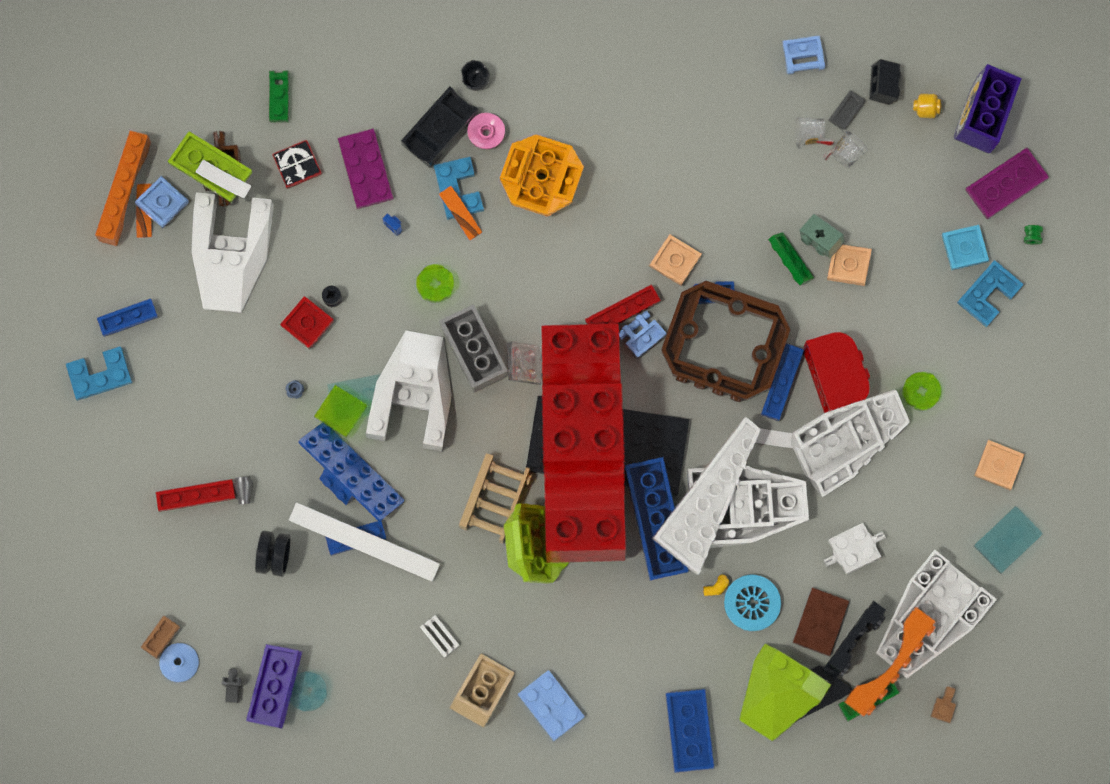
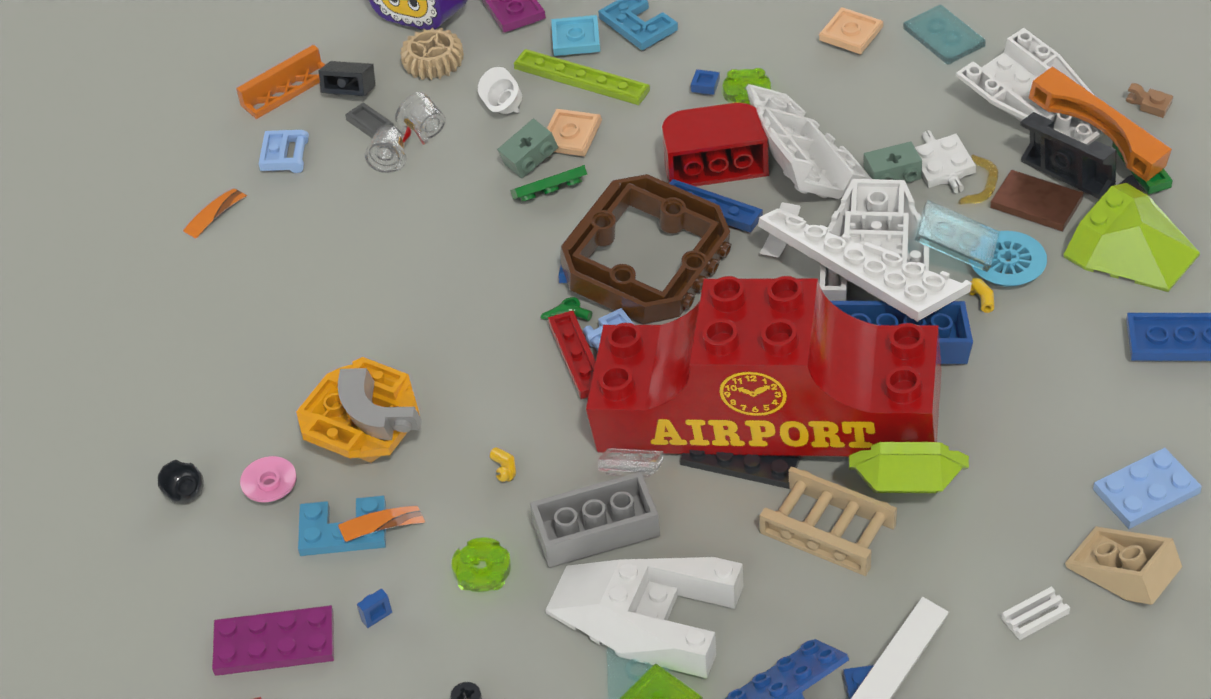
camera: 75 degrees left, 30 degrees down
(439, 127) = (245, 535): black piece -> none
(521, 282) = (507, 461): none -> yellow arm
(532, 177) = (356, 394): none -> light grey arch
(666, 296) = (568, 305): none -> green animal
(675, 260) = (519, 294): light nougat plate -> none
(737, 22) = (212, 211): none -> orange sticker
(756, 562) = (957, 236): none -> clear light blue tile
(834, 586) = (990, 184): none -> clear yellow animal
(839, 500) = (894, 163): none -> sand green brick
(882, 201) = (500, 91): none -> white piece
(884, 30) = (280, 79): none -> orange fence
(919, 261) = (582, 77): none -> lime tile
(920, 140) = (432, 53): none -> tan gear
(921, 357) = (705, 82): none -> blue plate
(927, 105) = (388, 48): yellow head -> none

